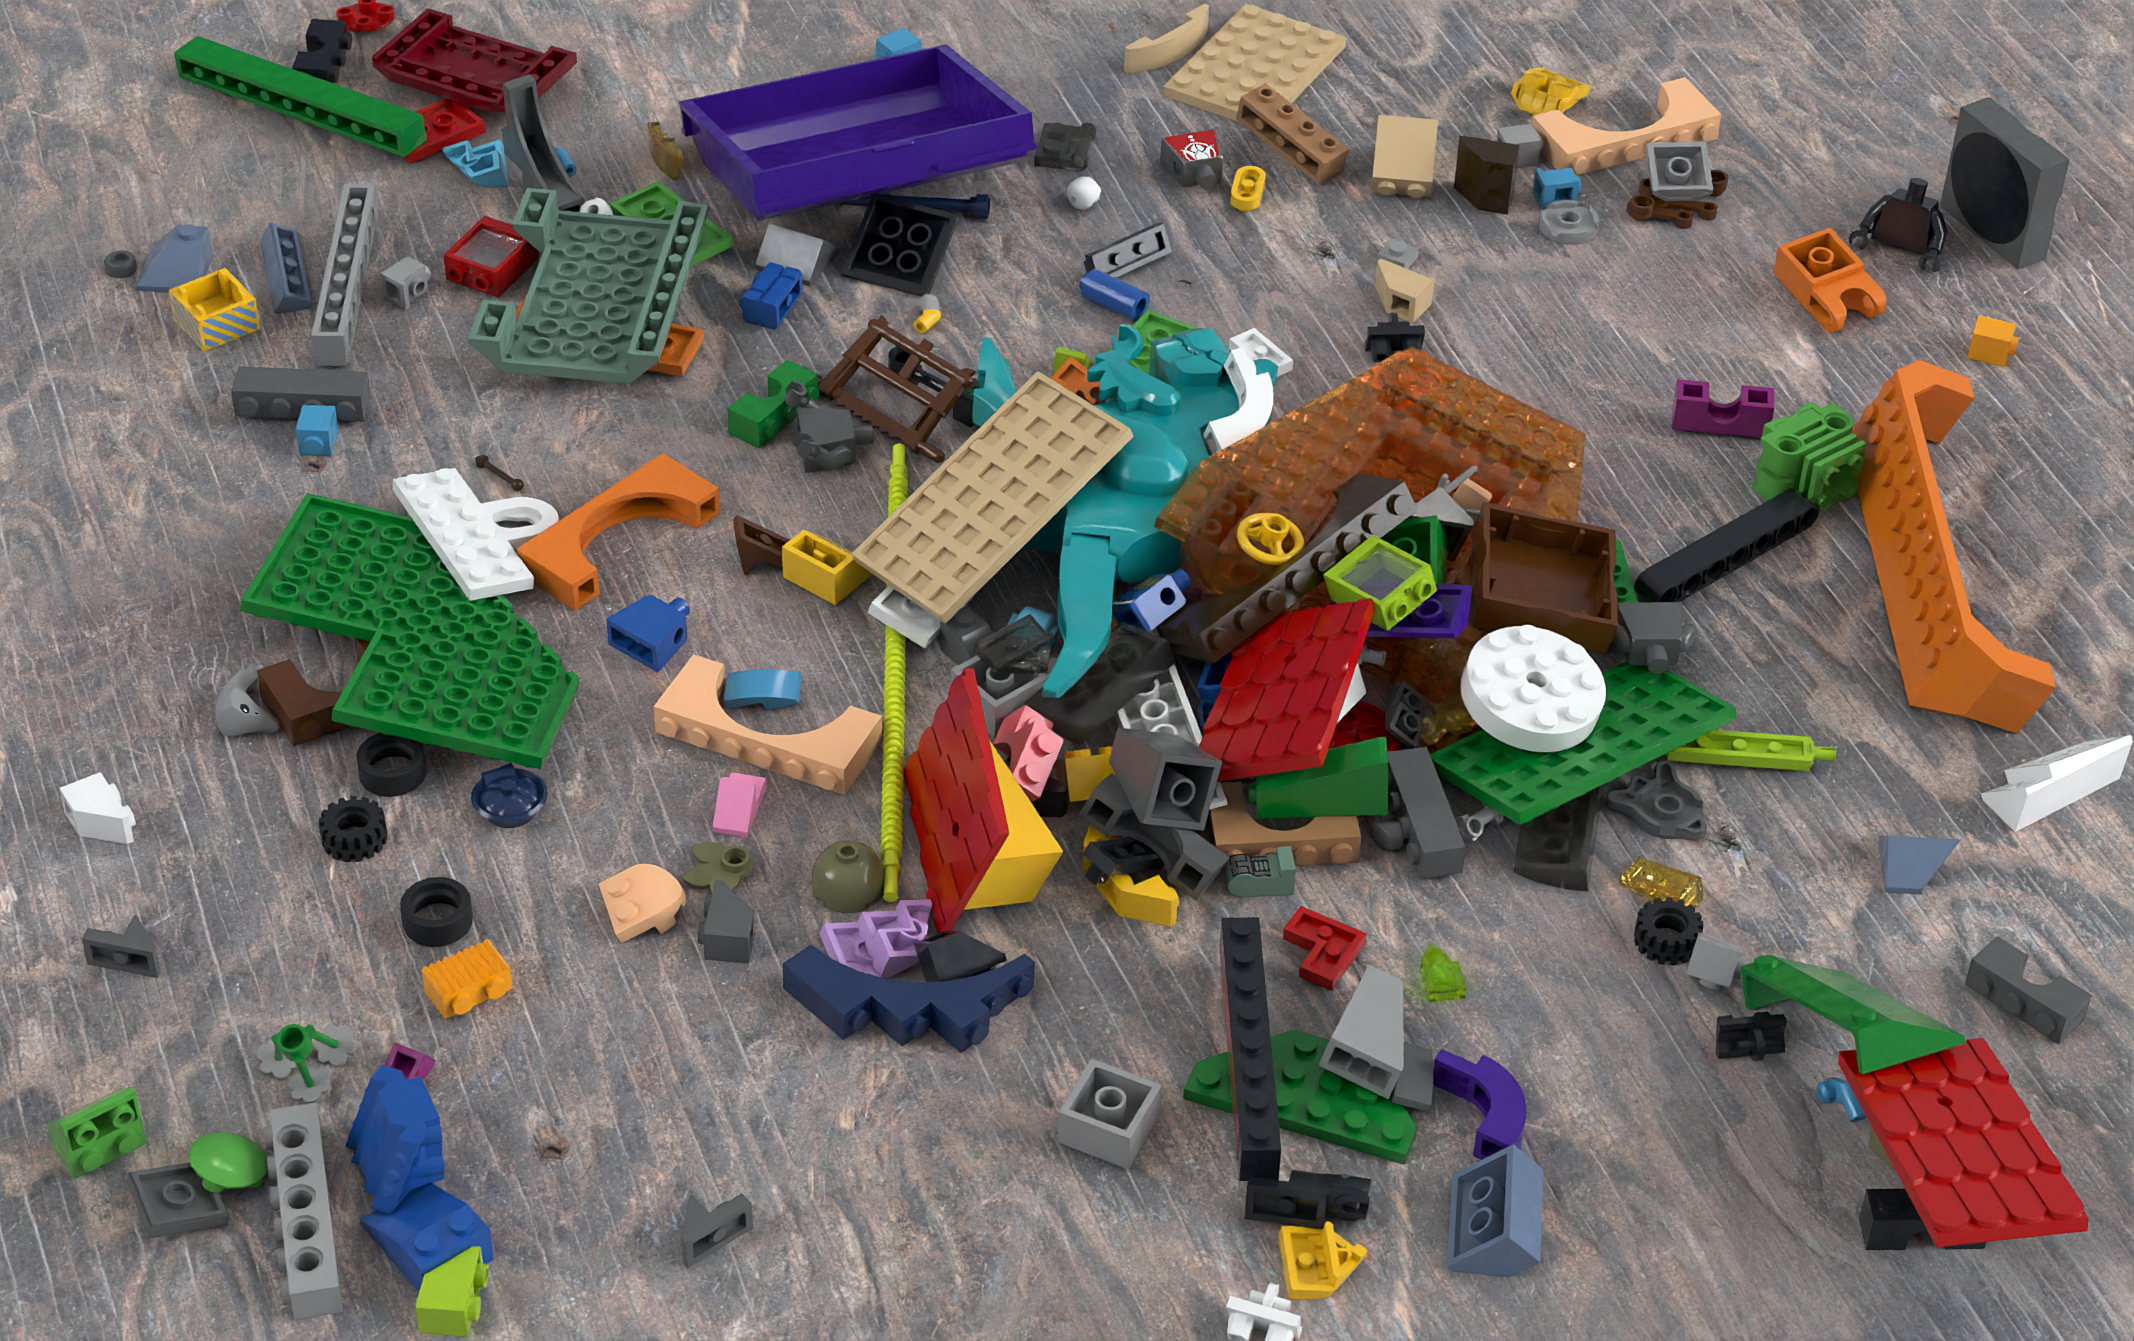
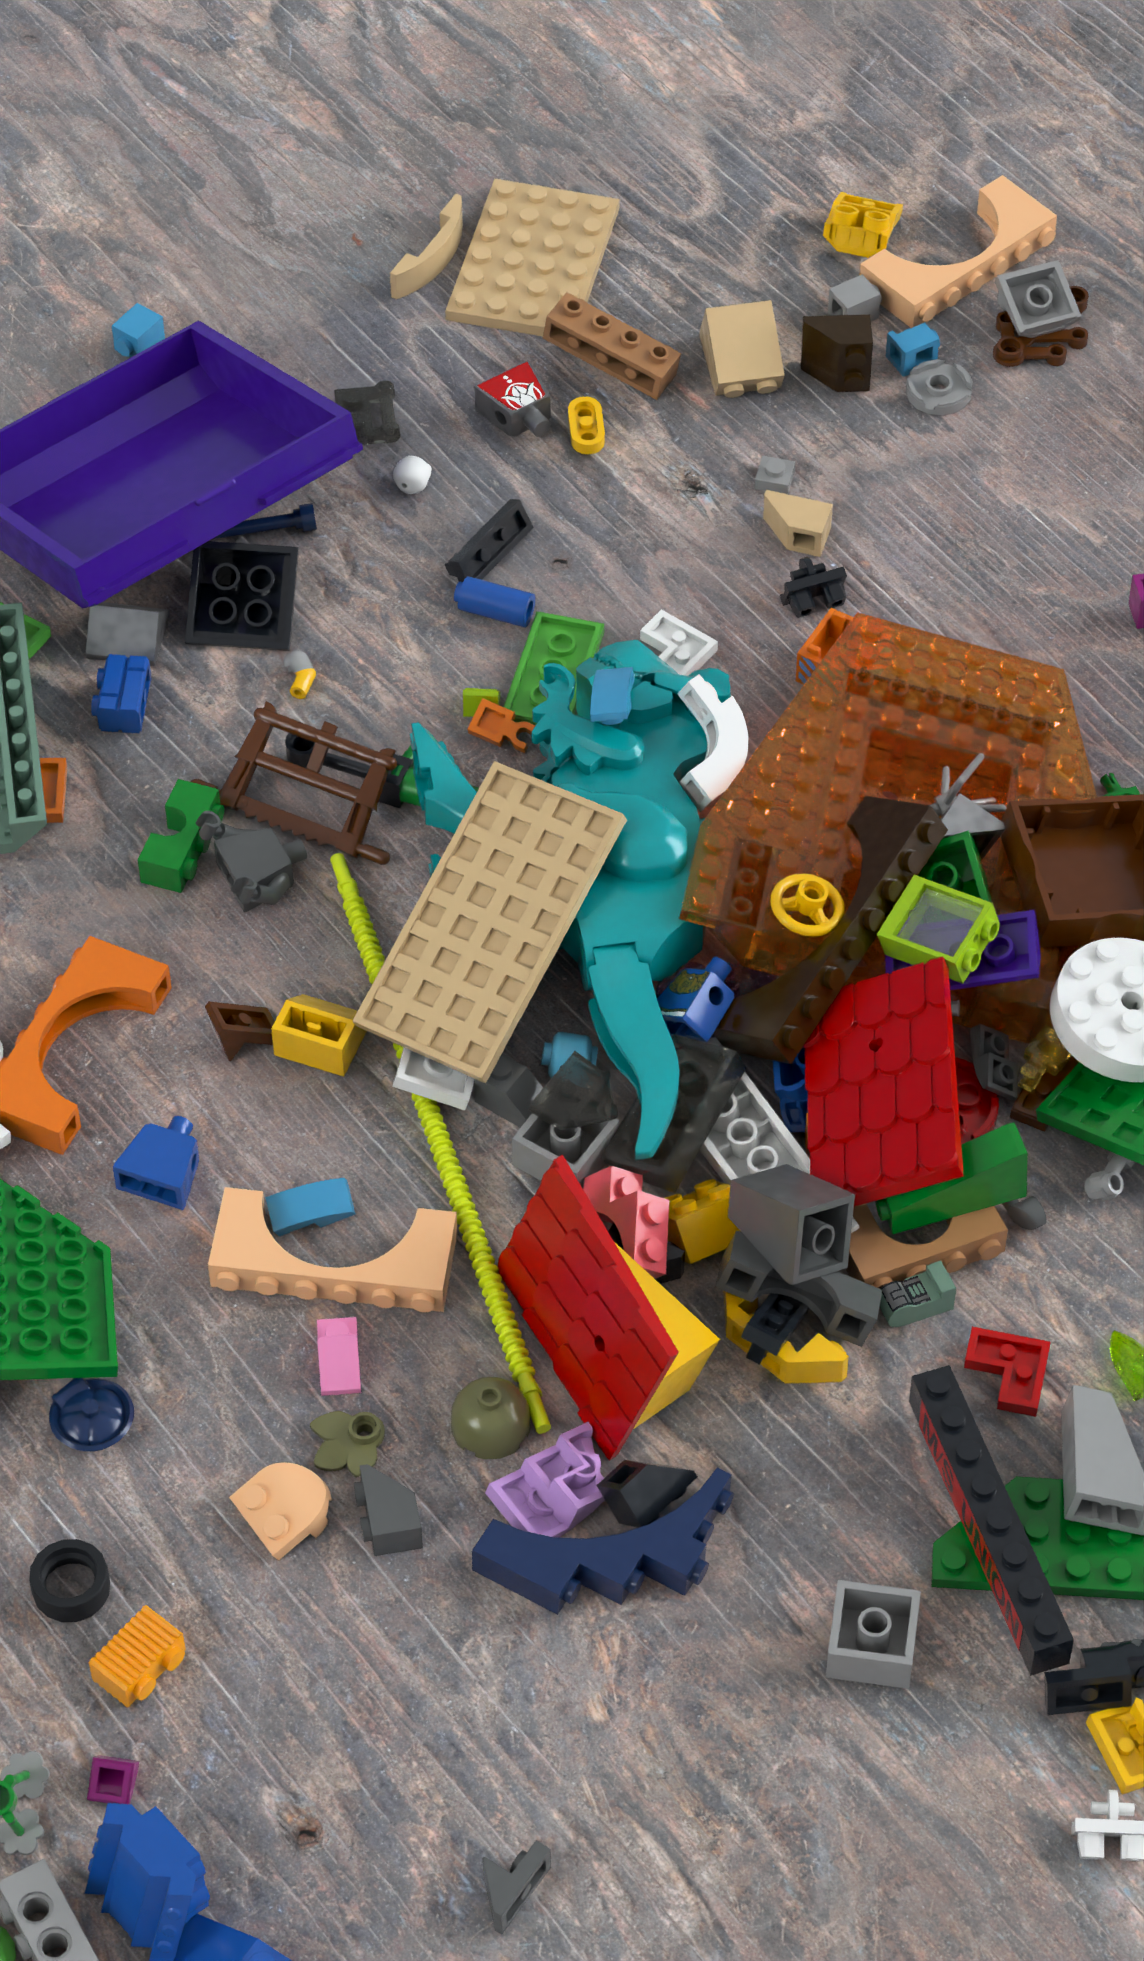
camera: 15 degrees left, 10 degrees up
(1164, 353) = (611, 695): none -> dark azure slope
(1424, 814) = (1062, 1184): dark grey brick -> none
(1471, 495) = (982, 781): light nougat slope -> none

